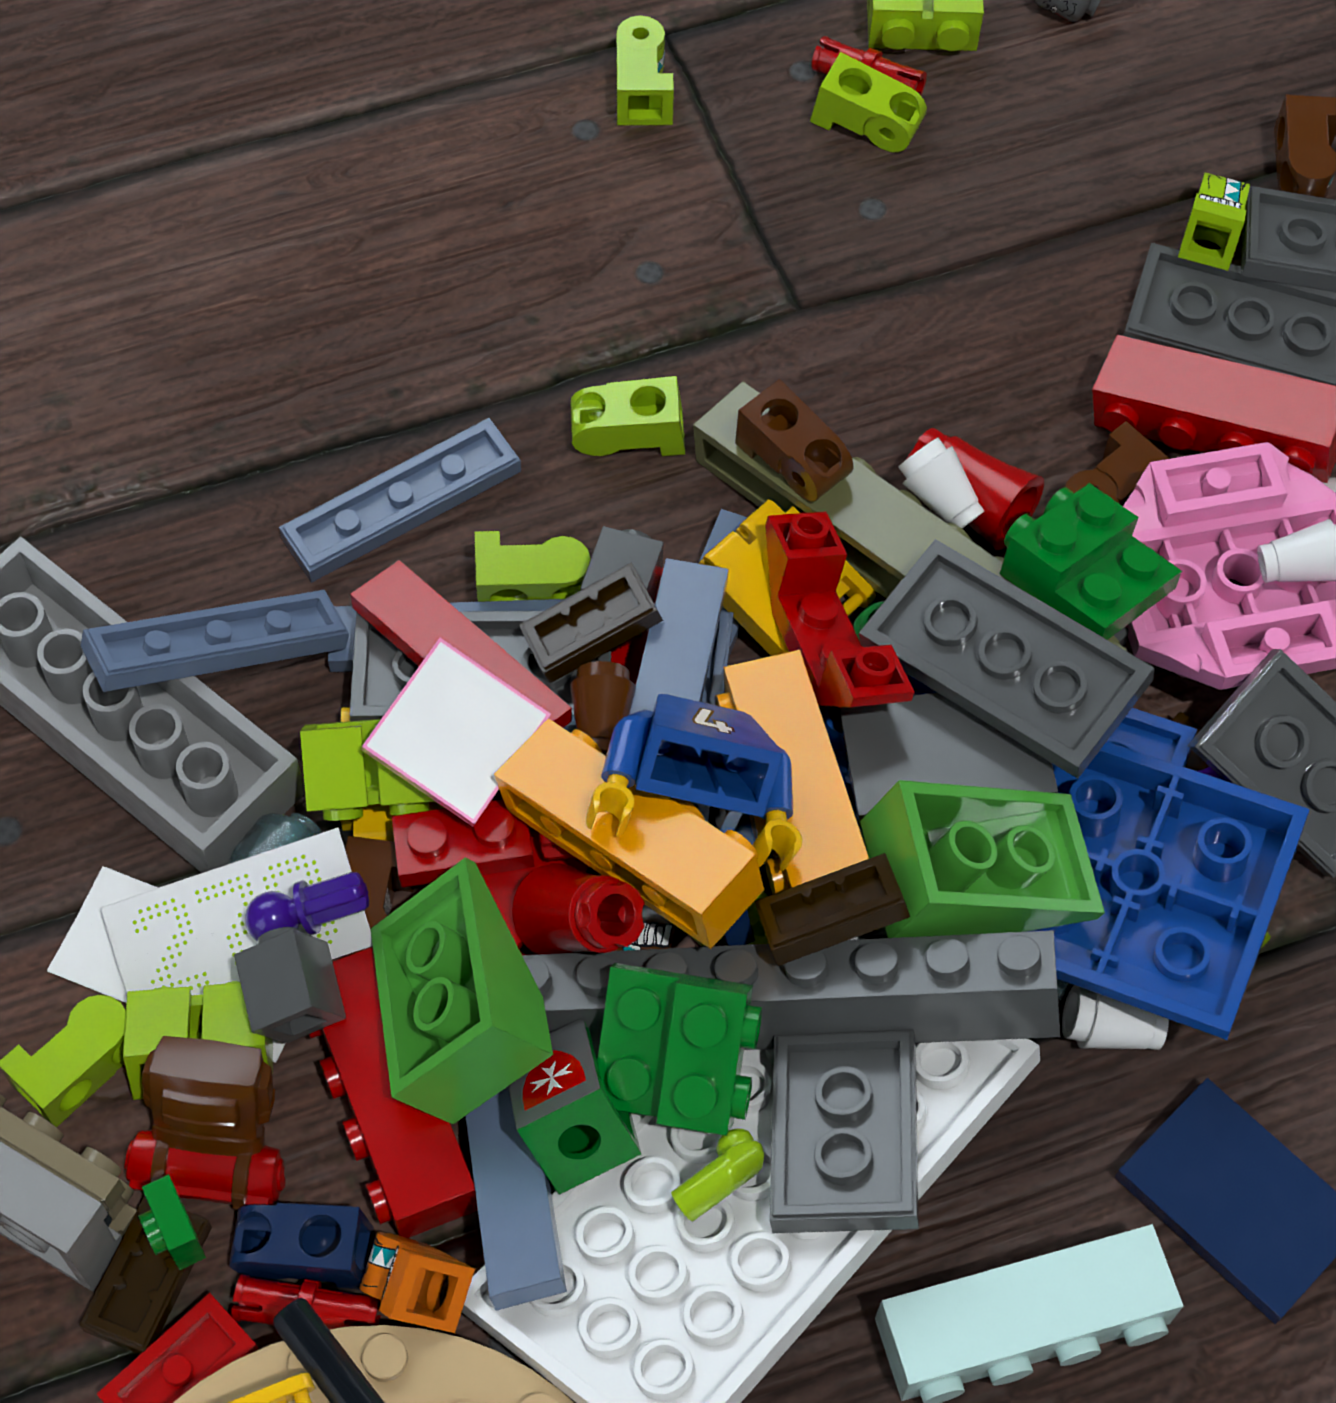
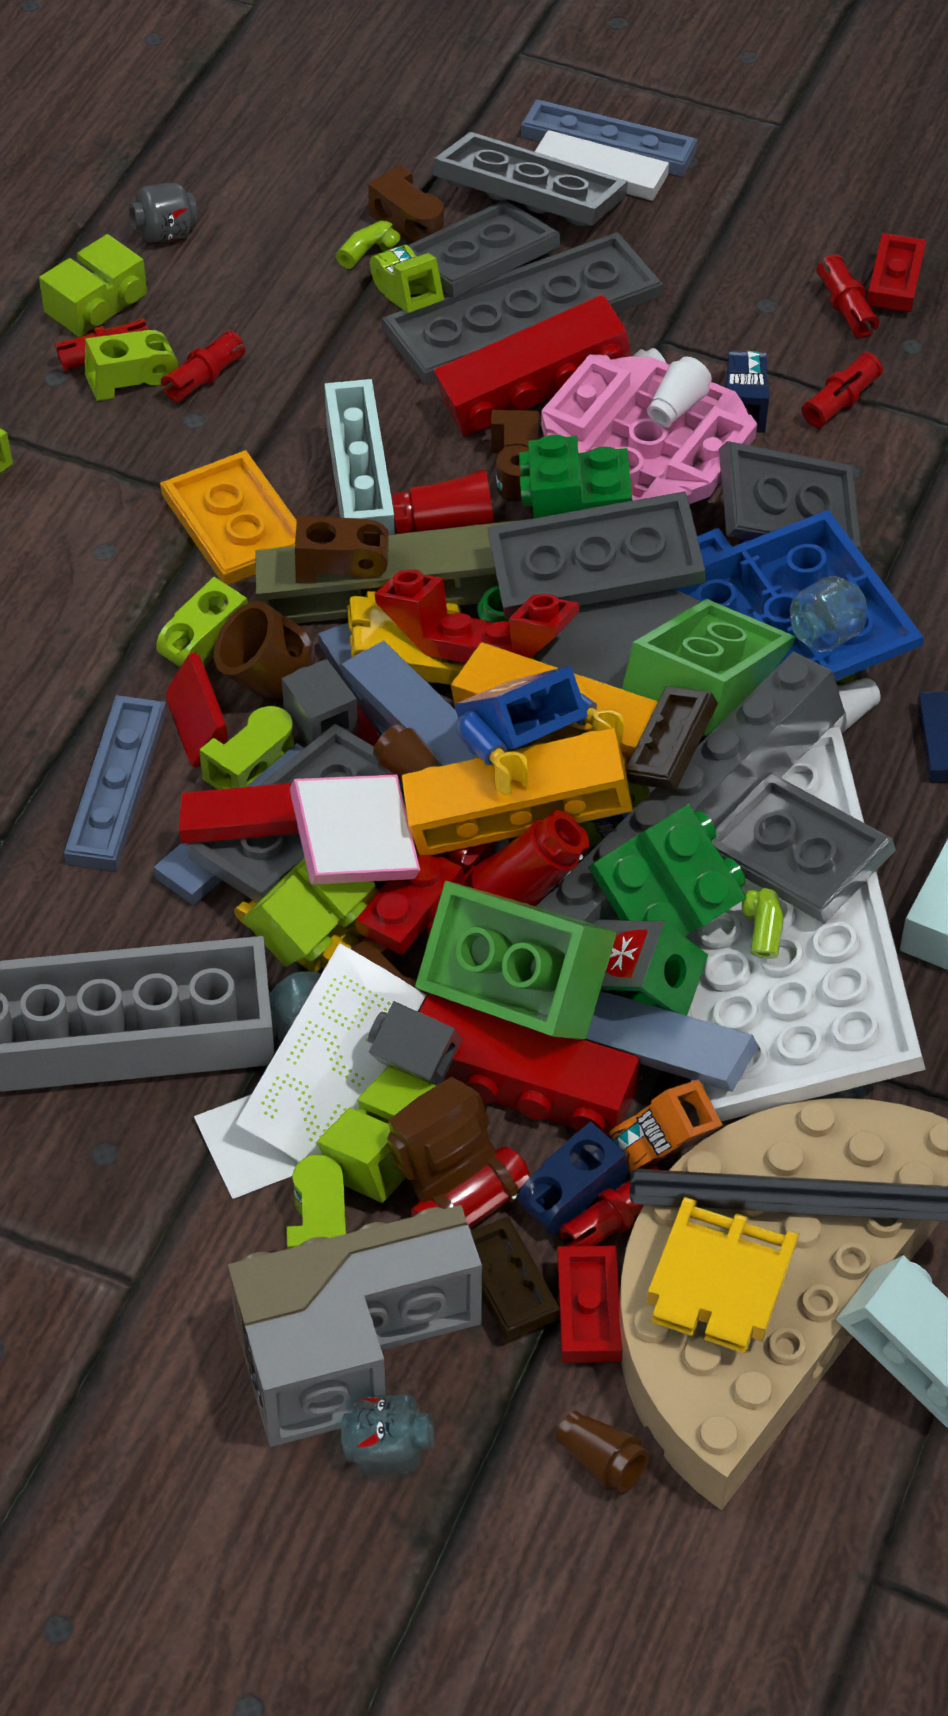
camera: 45 degrees left, 10 degrees down
(169, 1224) = (502, 1220): green plate -> none
(213, 640) = (126, 922): sand blue tile -> none
(310, 905) = (375, 995): dark purple axle -> none
(538, 492) = (195, 708): none -> red slope
(590, 622) = (342, 727): plate -> none
(637, 484) = (261, 648): none -> reddish brown piece
(792, 327) = (230, 514): none -> light orange tile
(931, 161) = (203, 366): none -> red pin
(938, 373) = (358, 452): none -> light aqua brick
(941, 483) = (436, 509): white cone -> none
(1151, 921) = (828, 613): none -> clear light blue head
(1229, 149) = (364, 239): none -> lime arm

